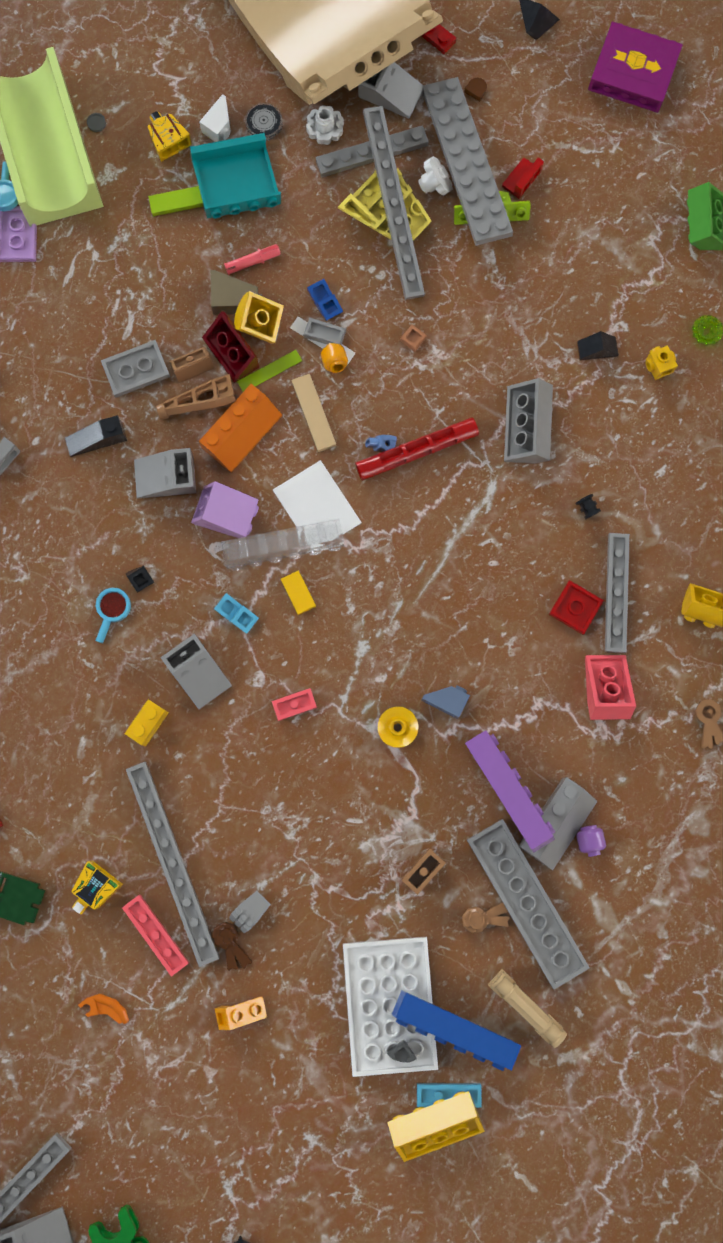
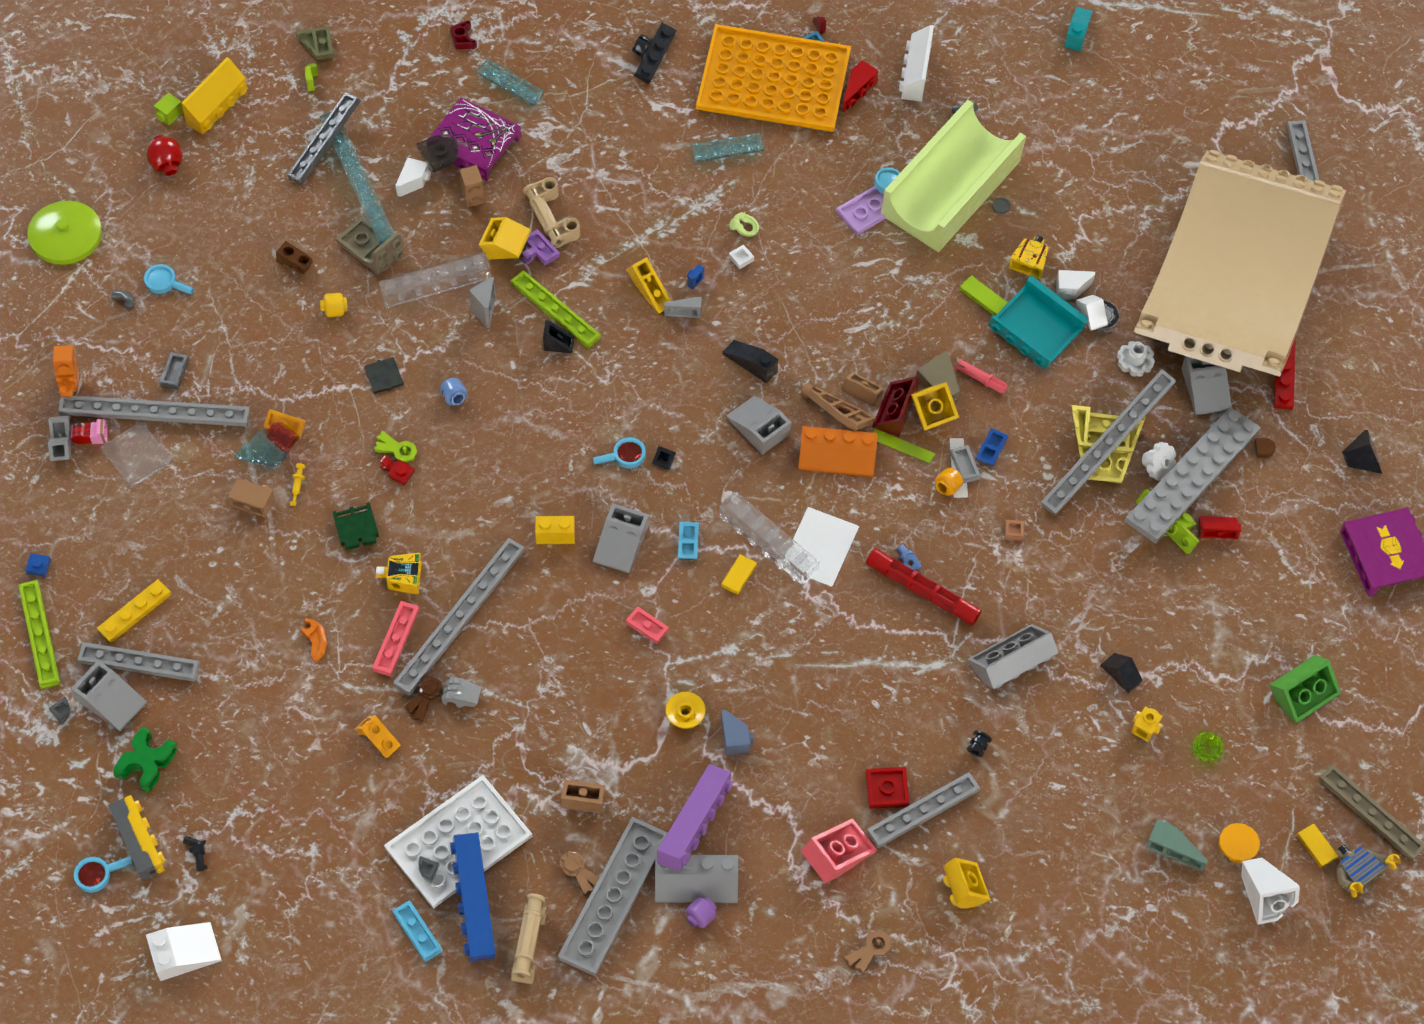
camera: 55 degrees right, 20 degrees down
(135, 368) = (826, 352): light grey plate -> none
(225, 510) = (763, 481): lavender slope -> none
(256, 122) = (1094, 310): none -> white slope
(313, 413) = (893, 496): tan tile -> none
(362, 154) = (1158, 415): light grey plate -> none
(435, 1126) = (386, 930): yellow slope -> none

